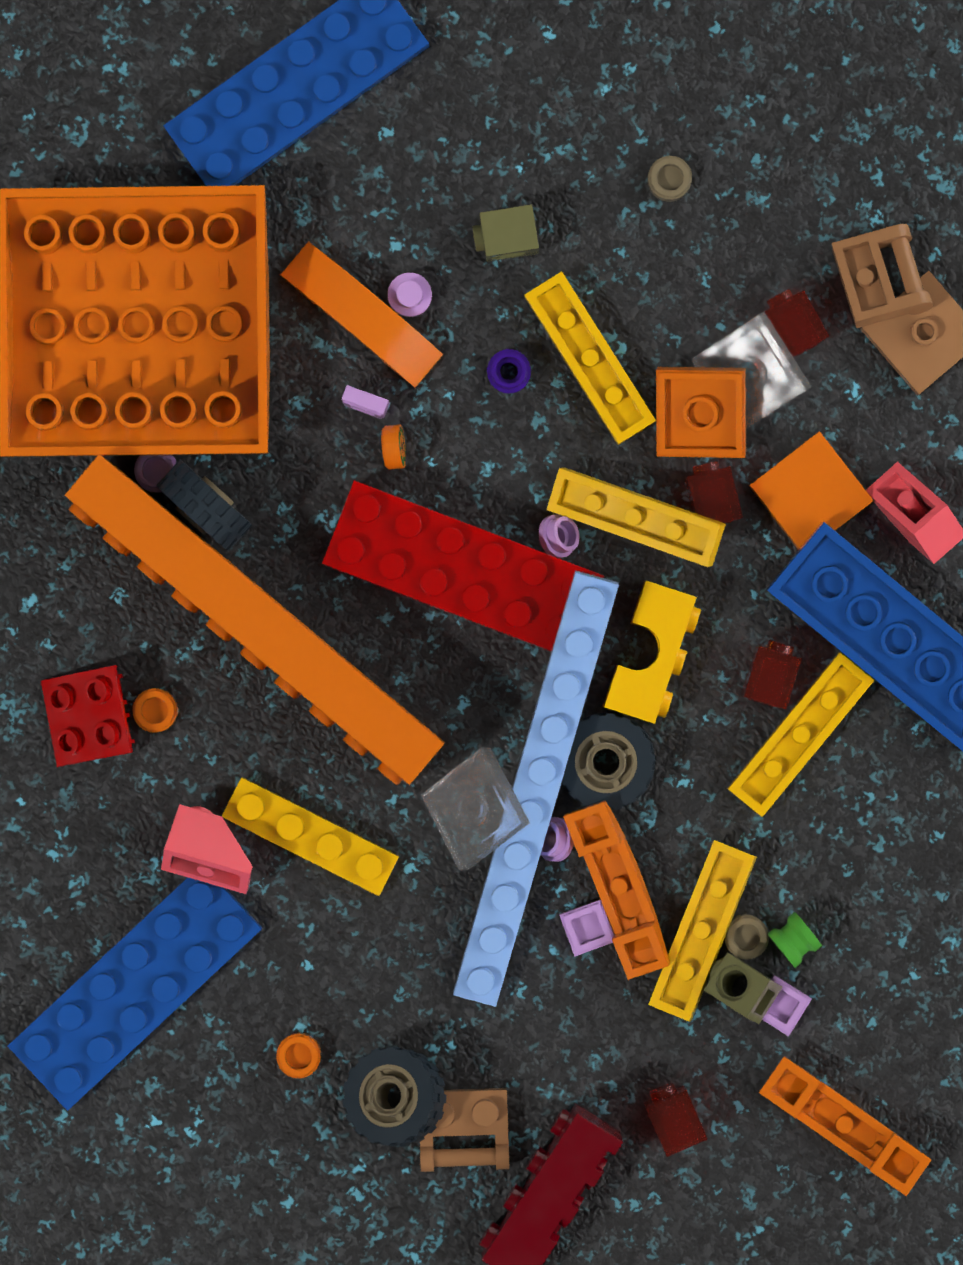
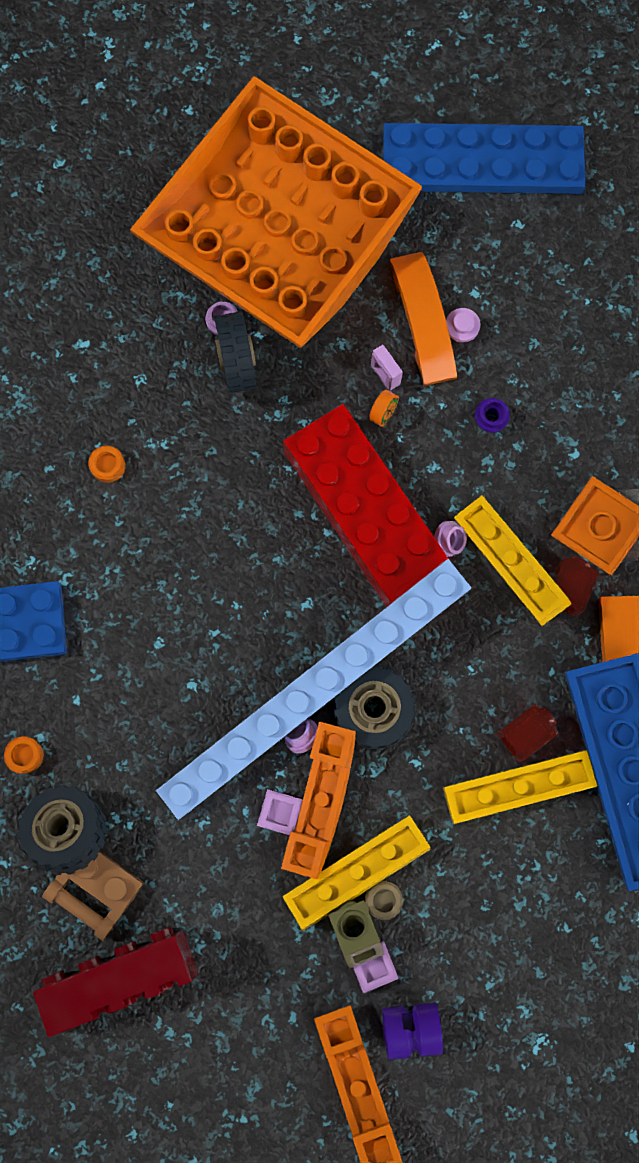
camera: 30 degrees right, 10 degrees down
(87, 716) = (61, 435): red hinge -> none
(206, 850) = (66, 570): coral slope -> none
(254, 618) = (214, 455): orange brick -> none
(310, 836) = (143, 616): yellow plate -> none
(475, 808) = (263, 673): clear tile -> none
(506, 233) = (553, 329): olive brick -> none
(589, 358) = (551, 443): yellow plate -> none
(668, 617) = (483, 639): yellow arch -> none
(674, 1118) = (241, 992): clear red brick -> none
(794, 939) = (416, 927): bright green wheel -> none
(861, 1021) = (426, 1032): none -> dark purple wheel

